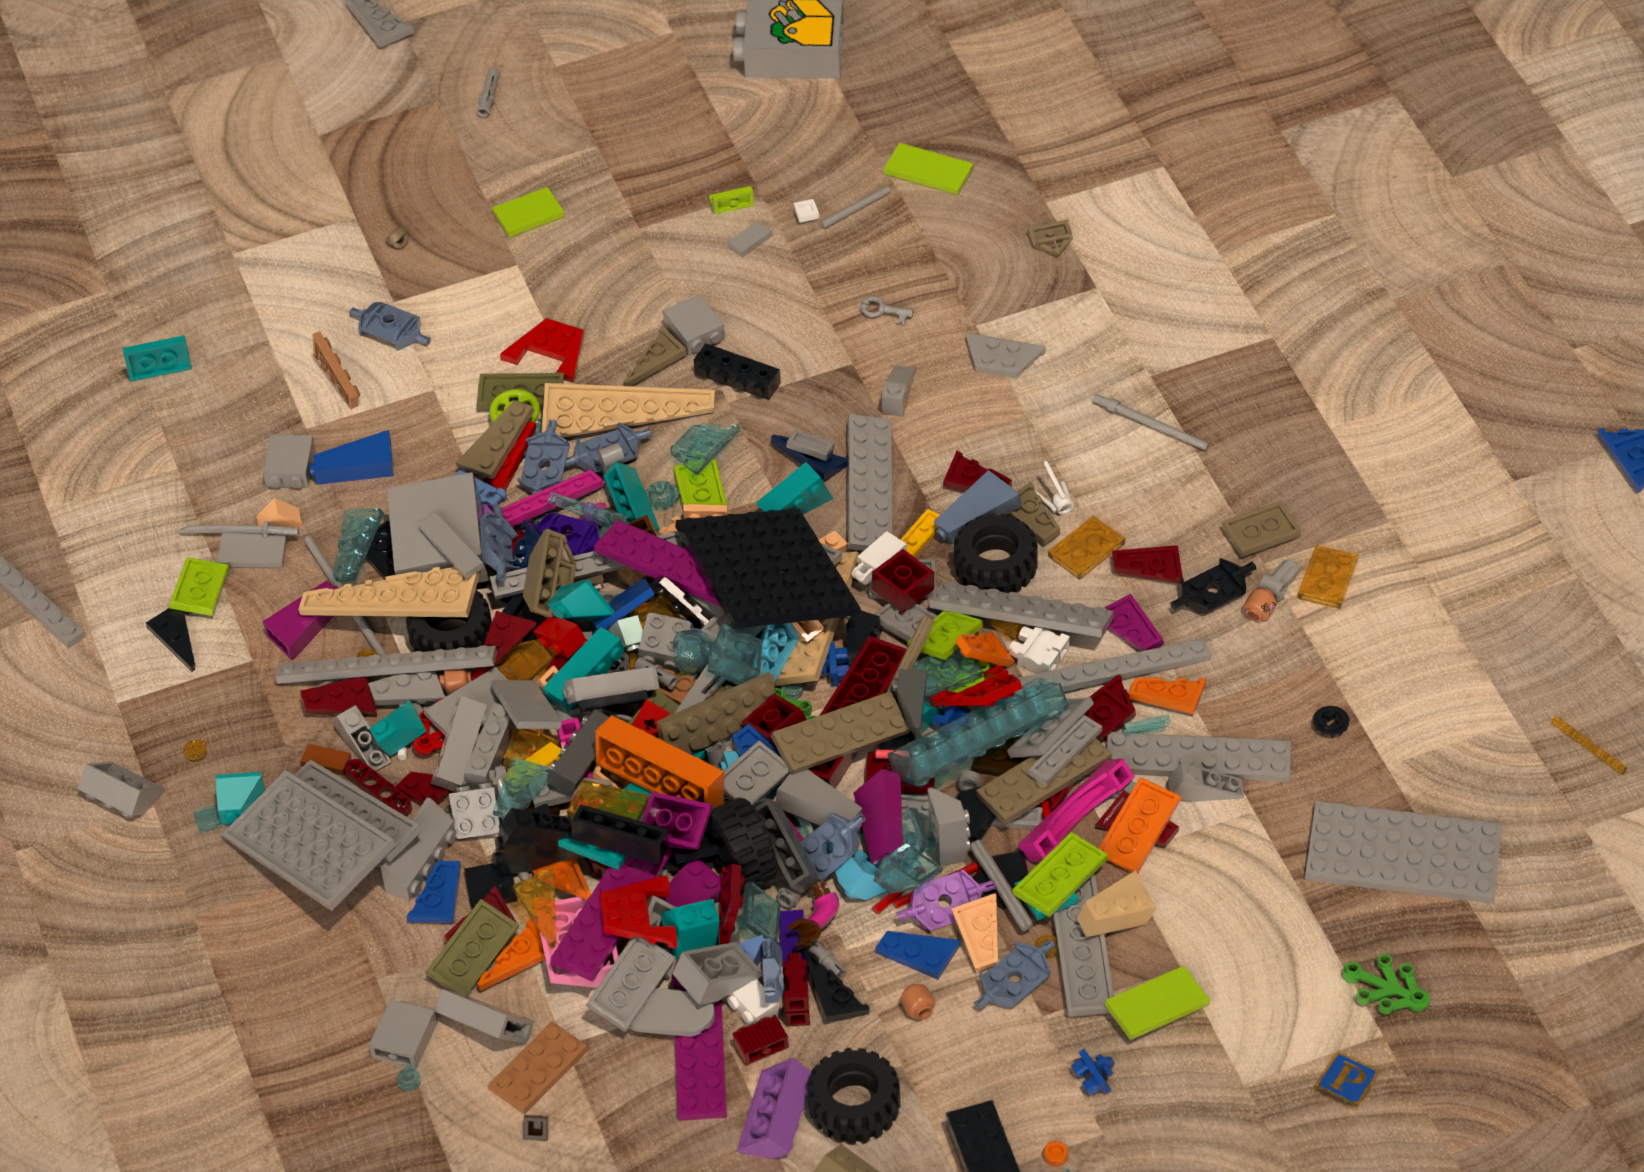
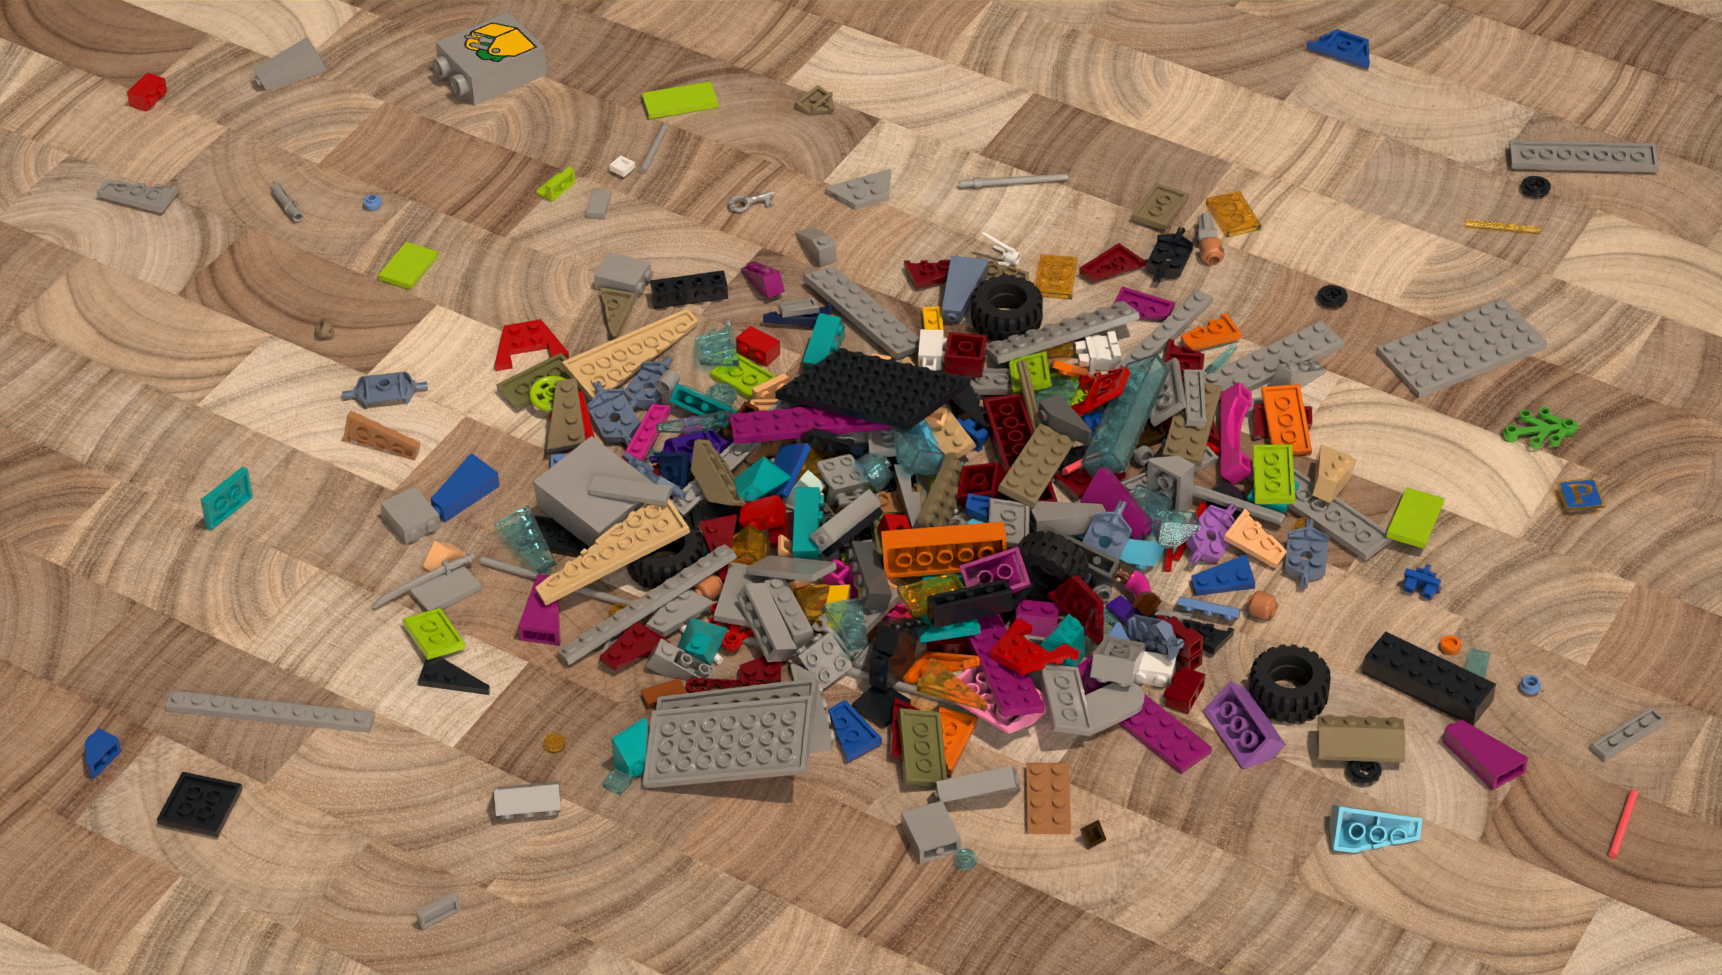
camera: 40 degrees left, 5 degrees down
(560, 130) = (372, 202): none -> medium blue plate
(738, 464) = (758, 346): none -> red piece
(813, 397) = (764, 278): none -> magenta slope
(868, 972) = (1208, 608): none -> medium blue plate

